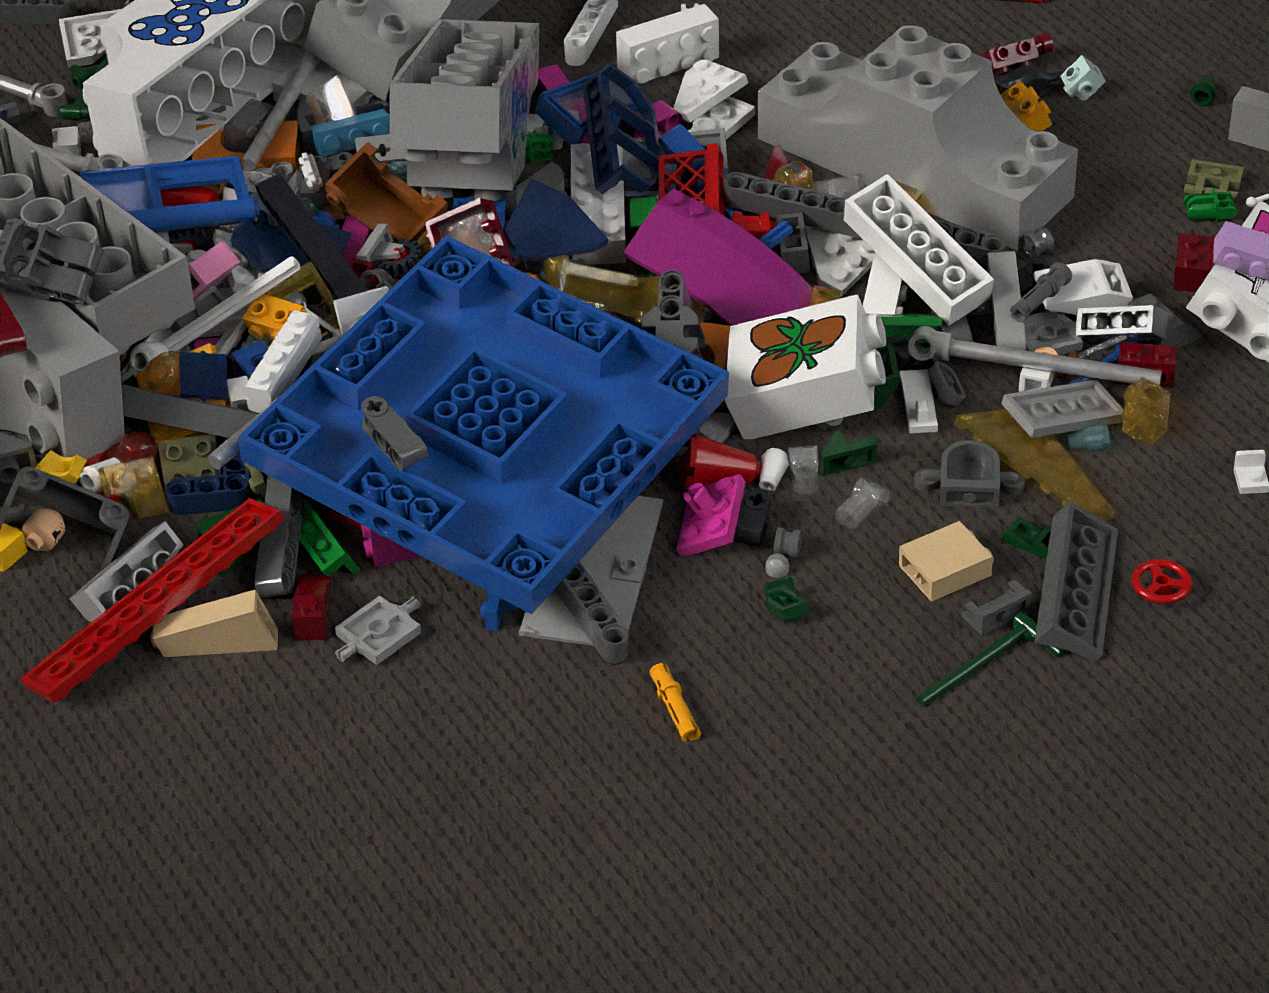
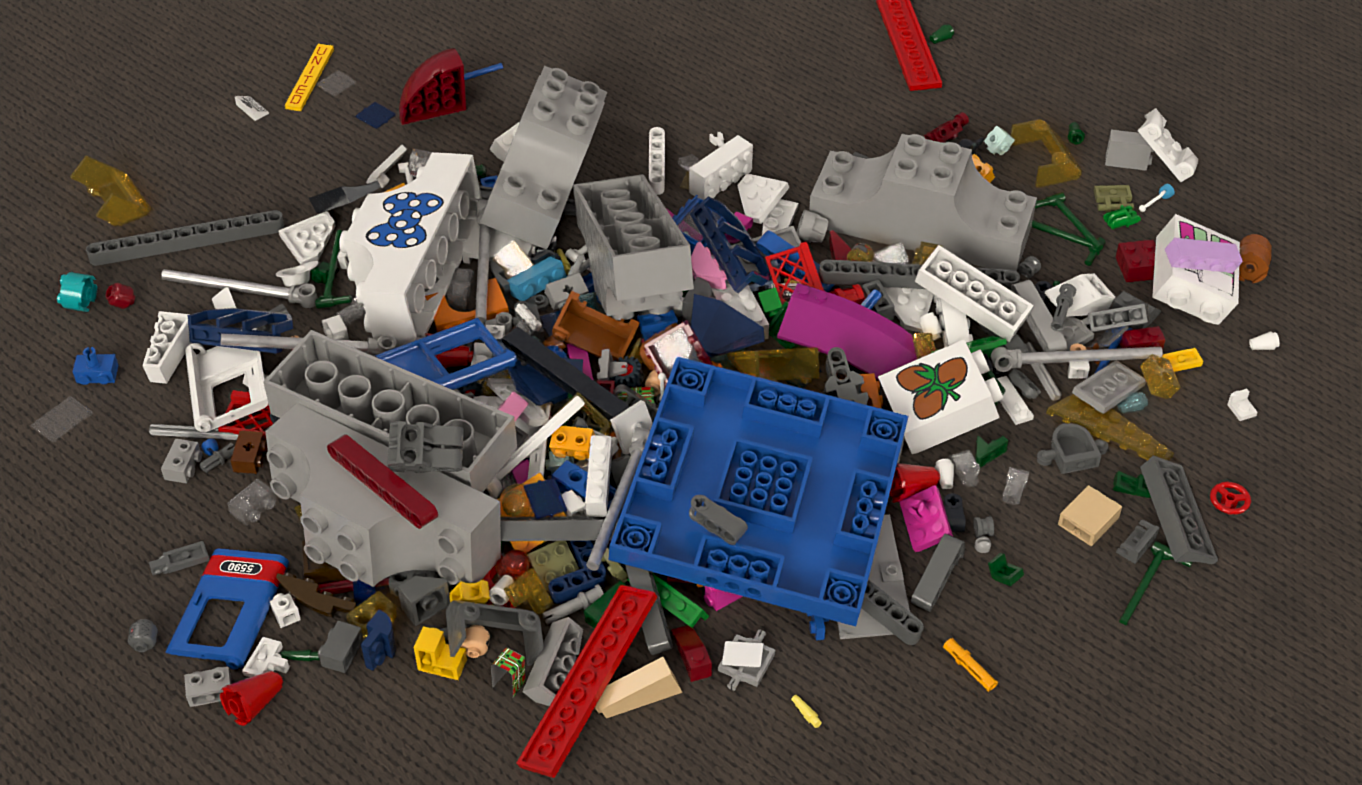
camera: 20 degrees left, 5 degrees up
(52, 73) = (297, 275): none -> white piece
(61, 564) = (514, 664): none -> piece
(187, 518) = (582, 600): none -> light grey pin
(373, 619) = (742, 654): none -> white sticker
(425, 709) = (810, 715): none -> light yellow animal
(570, 153) = (707, 268): none -> bright pink slope
(689, 578) = (938, 571): none -> dark grey beam
(753, 137) = (811, 227): none -> light grey piece
(851, 283) = (930, 324): none -> white brick
(983, 380) = (1045, 377): none -> light grey axle
(1129, 169) = (1058, 200): none -> dark green bar
(1149, 236) = (1071, 237): none -> dark green bar
(1158, 123) = (1064, 164): none -> clear yellow windscreen
(1195, 399) = (1184, 359): none -> yellow plate

